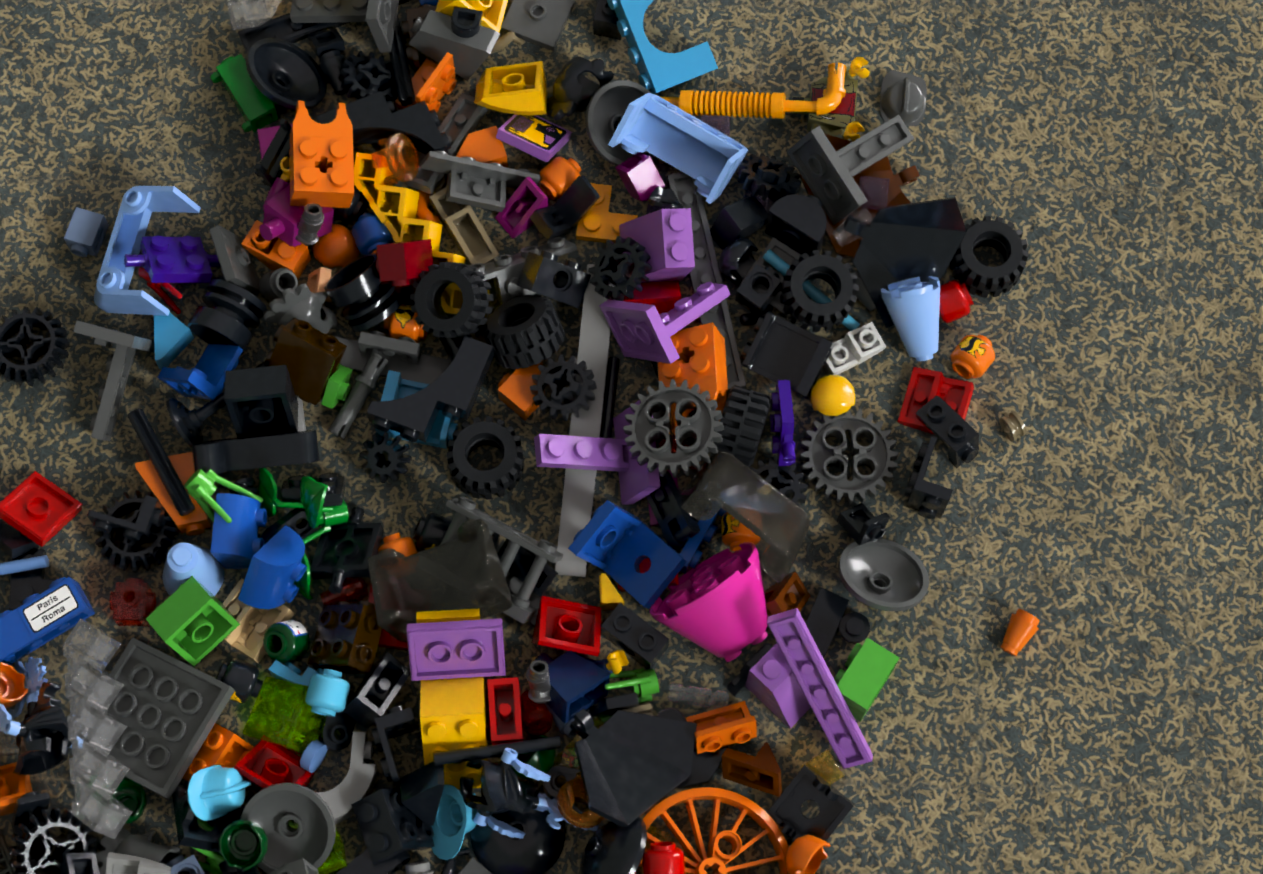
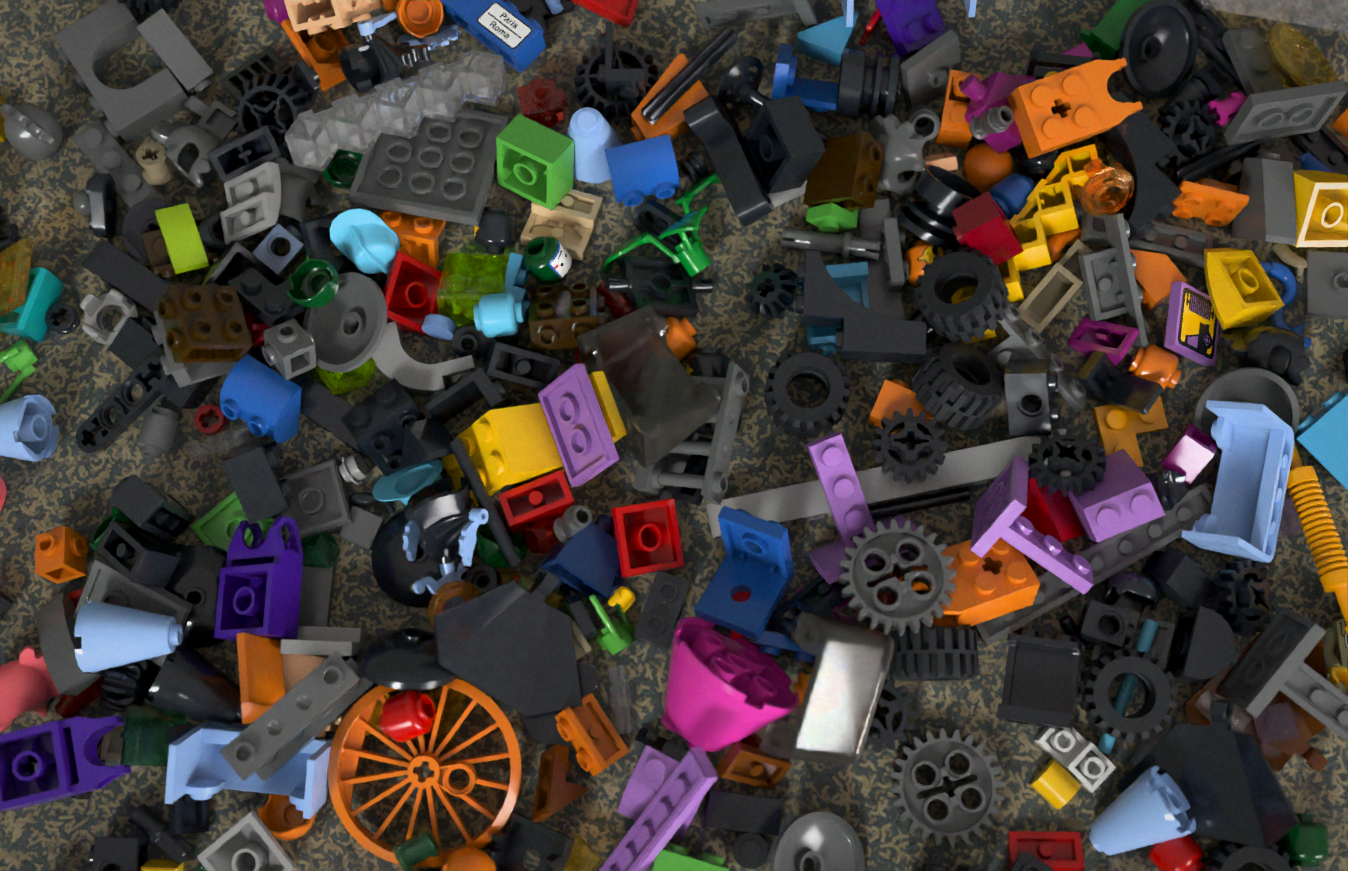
camera: 80 degrees right, 5 degrees up
(202, 487) = (671, 119): bright green plant -> none
(274, 571) = (609, 219): blue brick -> none
(334, 493) = (713, 240): black plate -> none
(357, 37) = (1226, 108): none -> dark pink bush
(466, 22) = (1293, 203): black tile -> none
(514, 52) = (1285, 276): none -> blue animal
(608, 594) = (700, 567): yellow slope -> none
(782, 424) = (952, 698): dark purple plate -> none
(832, 395) = (1009, 747): yellow hair -> none
(863, 524) = (870, 826): black bracket -> none
(871, 372) = (1055, 784): none -> yellow brick
(971, 203) = (1306, 842): none -> dark green head

